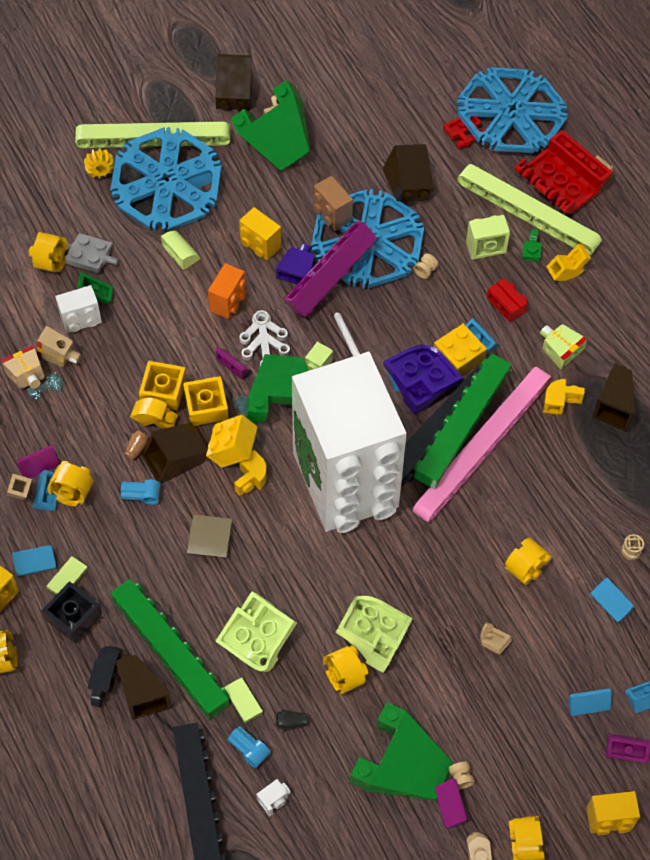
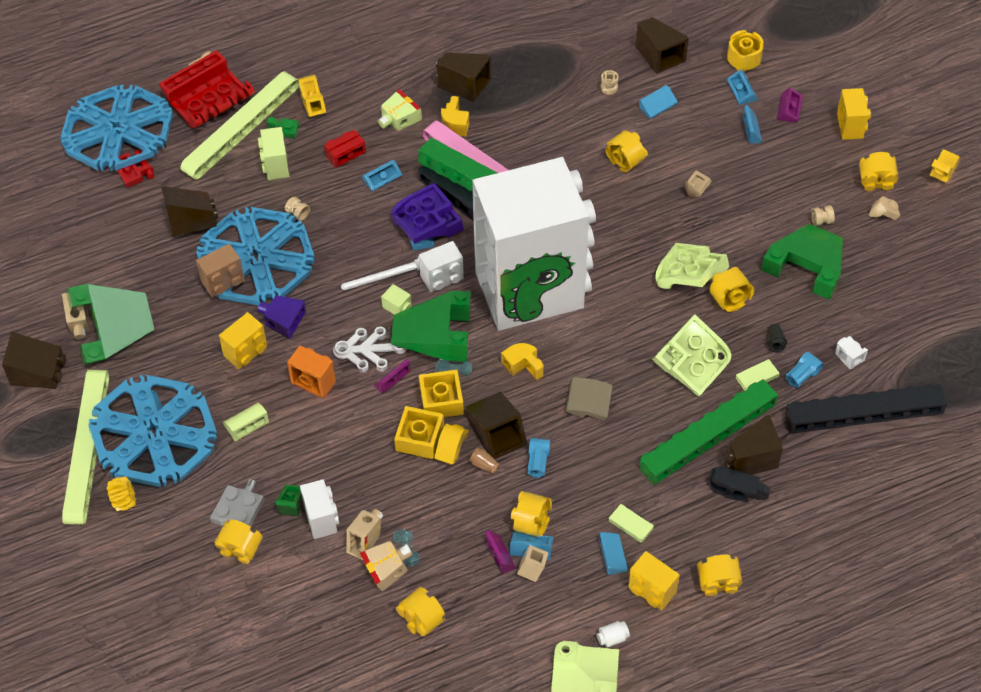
camera: 85 degrees left, 5 degrees down
(71, 612) = (674, 511): black brick -> none
(231, 441) = (492, 368): yellow brick -> none
(330, 269) = (298, 279): magenta brick -> none
(451, 803) = (848, 223): magenta slope -> none
(462, 349) = (397, 184): yellow brick -> none

